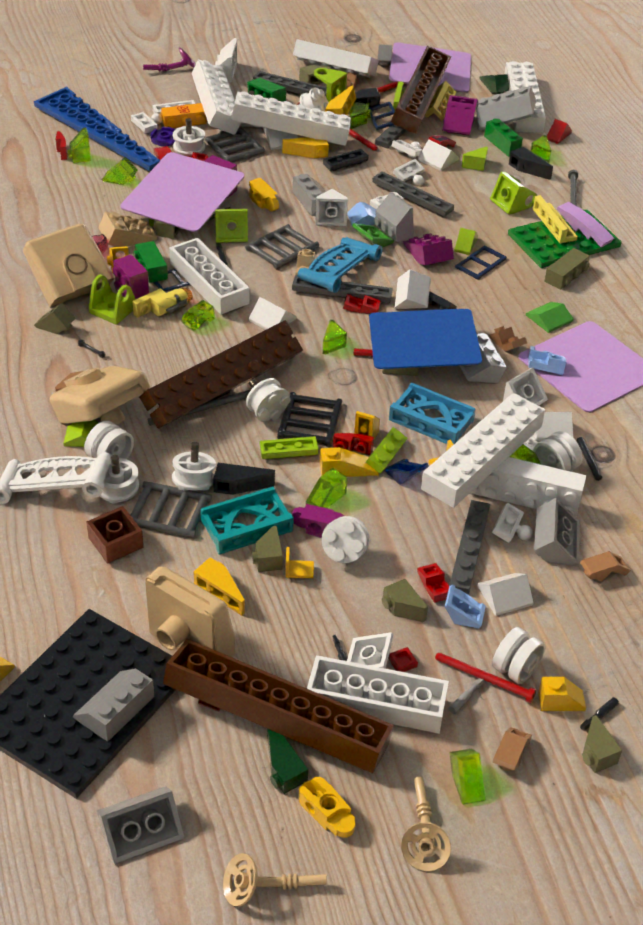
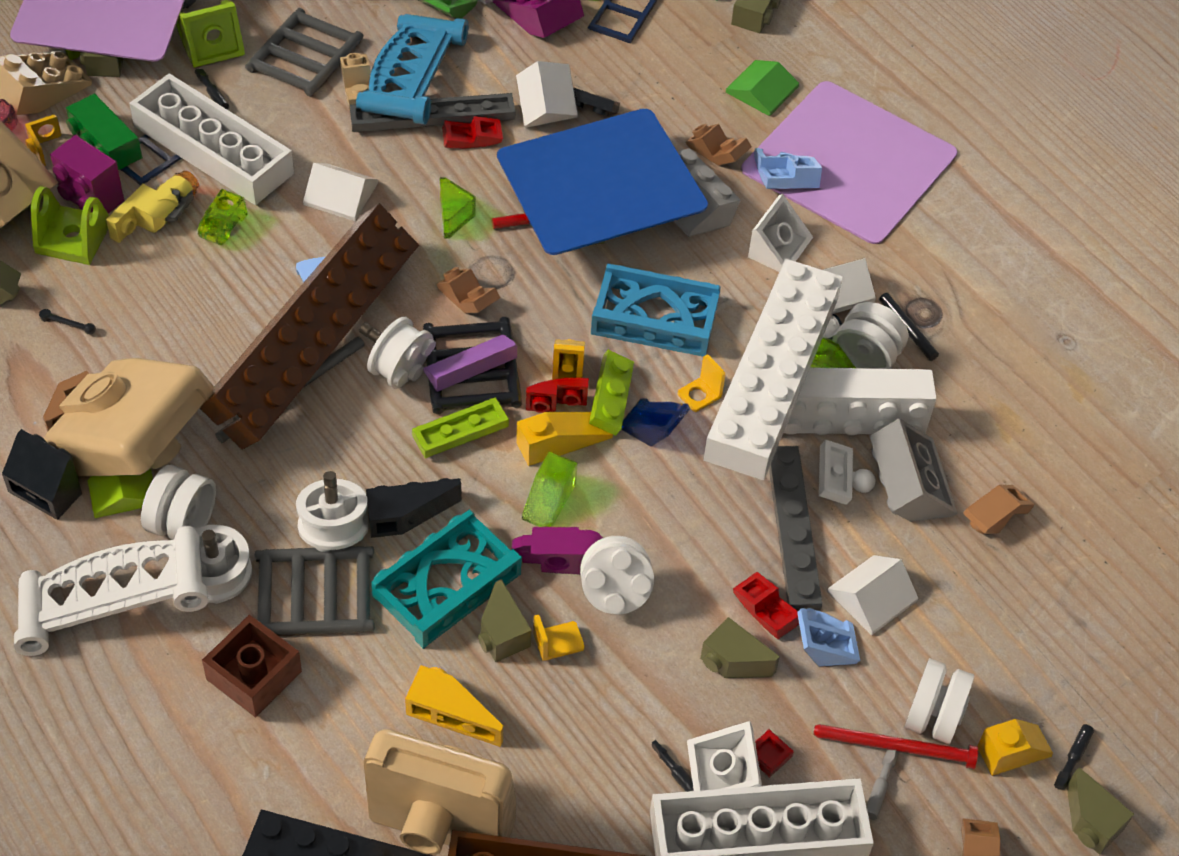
camera: 20 degrees left, 10 degrees up
(42, 414) = (41, 474): none -> black slope
(309, 416) = (471, 362): none -> medium lavender slope
(322, 380) = (465, 290): none -> medium nougat slope

